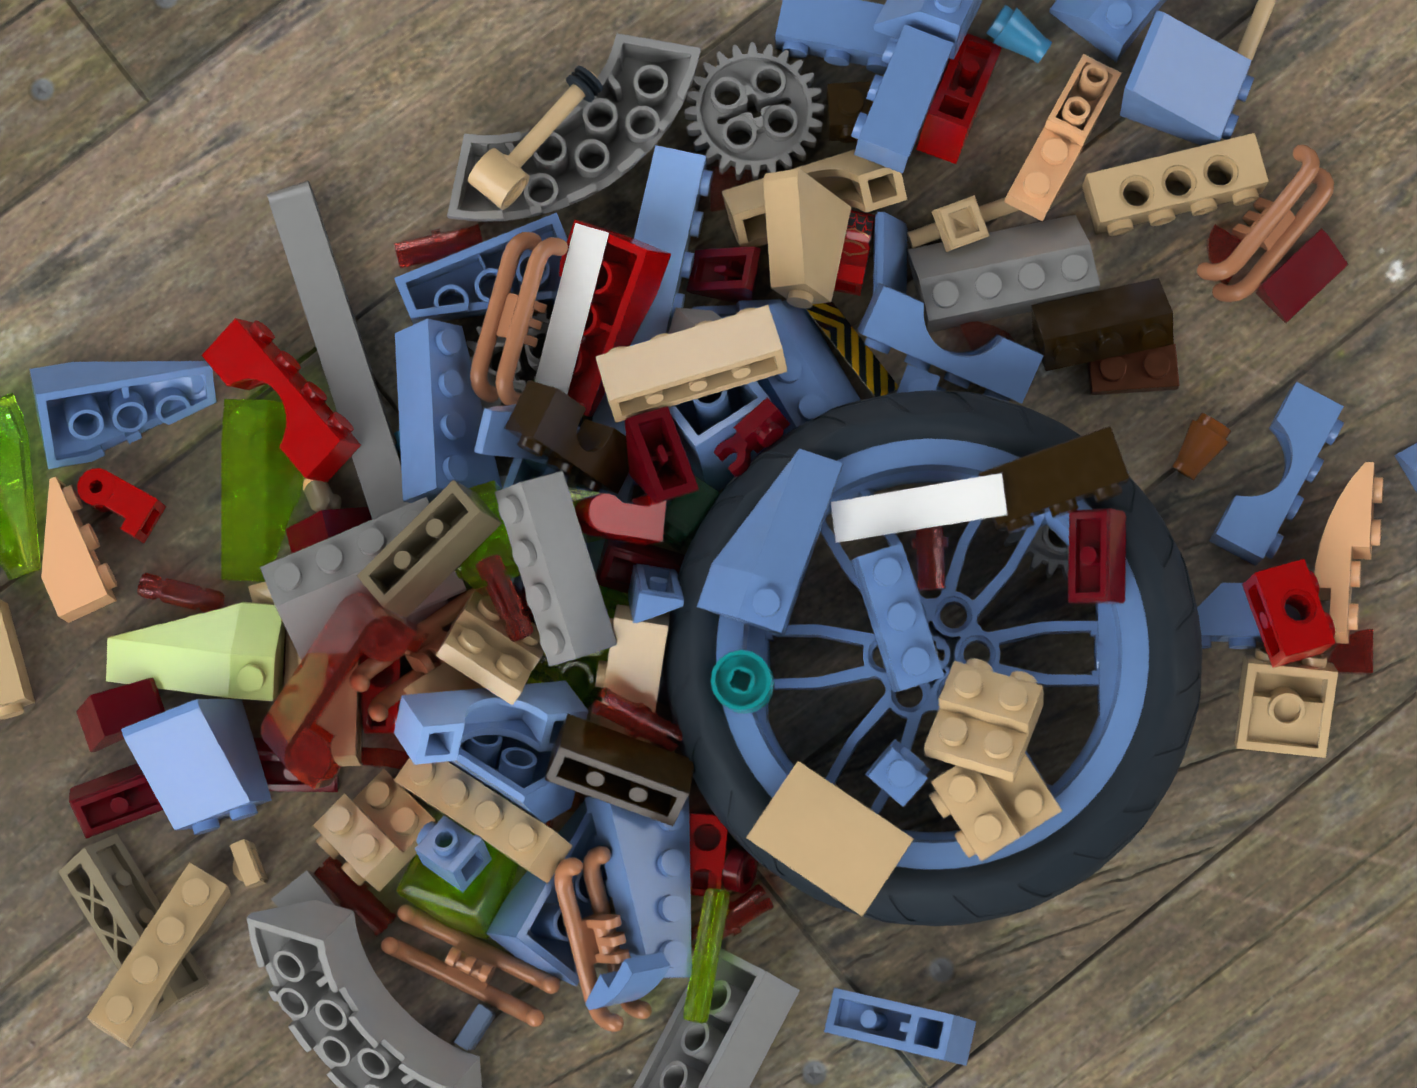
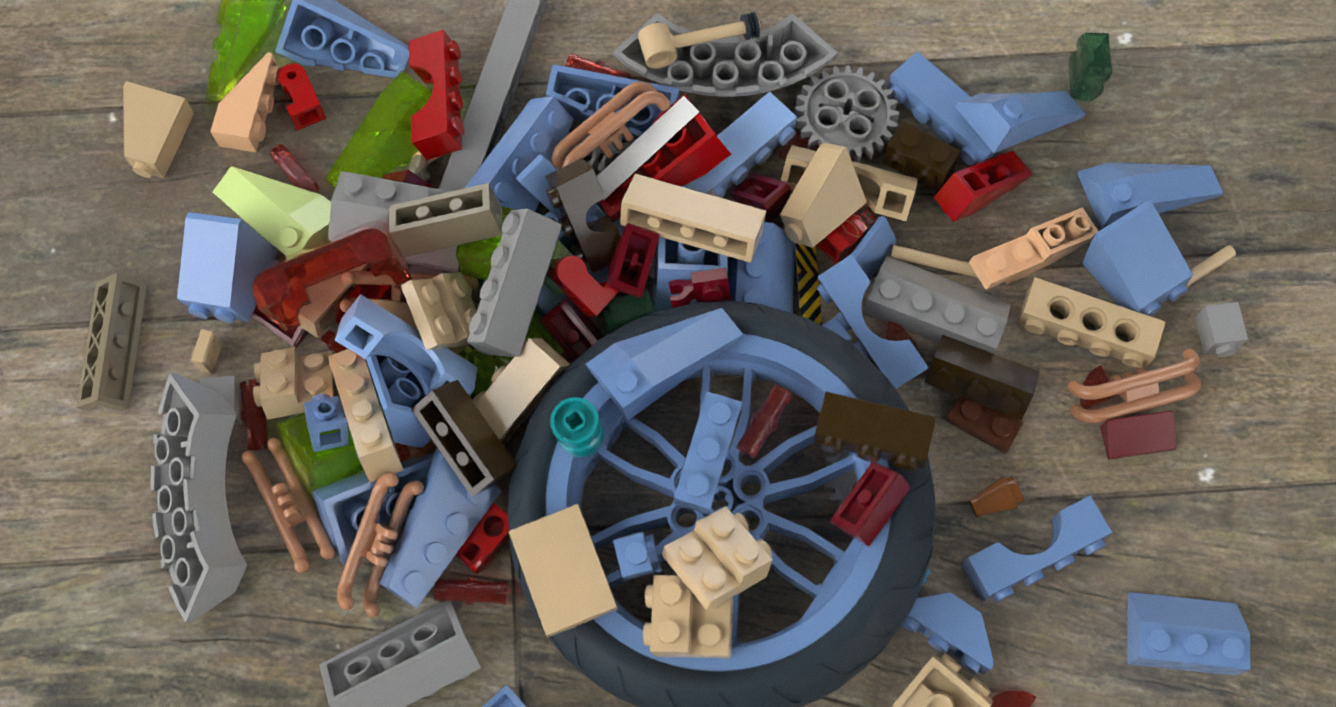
camera: 30 degrees right, 10 degrees down
(111, 710) = (202, 202): dark red slope -> none
(113, 800) = (155, 262): dark red slope -> none
(148, 968) = (75, 375): tan arch -> none
(475, 1027) = (262, 546): sand blue tile -> none
(504, 598) = (471, 282): clear red axle -> none
(631, 982) = (372, 578): medium blue slope -> none
(637, 719) = (499, 414): clear red pin -> none
(653, 592) = (567, 341): medium blue slope -> none
(706, 955) = (436, 601): clear neon green axle -> none
(739, 870) = (499, 563): dark red tile -> none
(901, 98) = (943, 151): medium blue brick -> none
(919, 508) = (772, 391): white sticker -> none
(960, 223) = (930, 257): tan tile -> none
(1016, 33) = (1047, 171): dark azure cone -> none
(1282, 636) = (968, 654): red brick -> none
(1315, 99) = (1221, 329): none -> light grey brick
(1349, 537) = (1053, 624): light nougat slope -> none

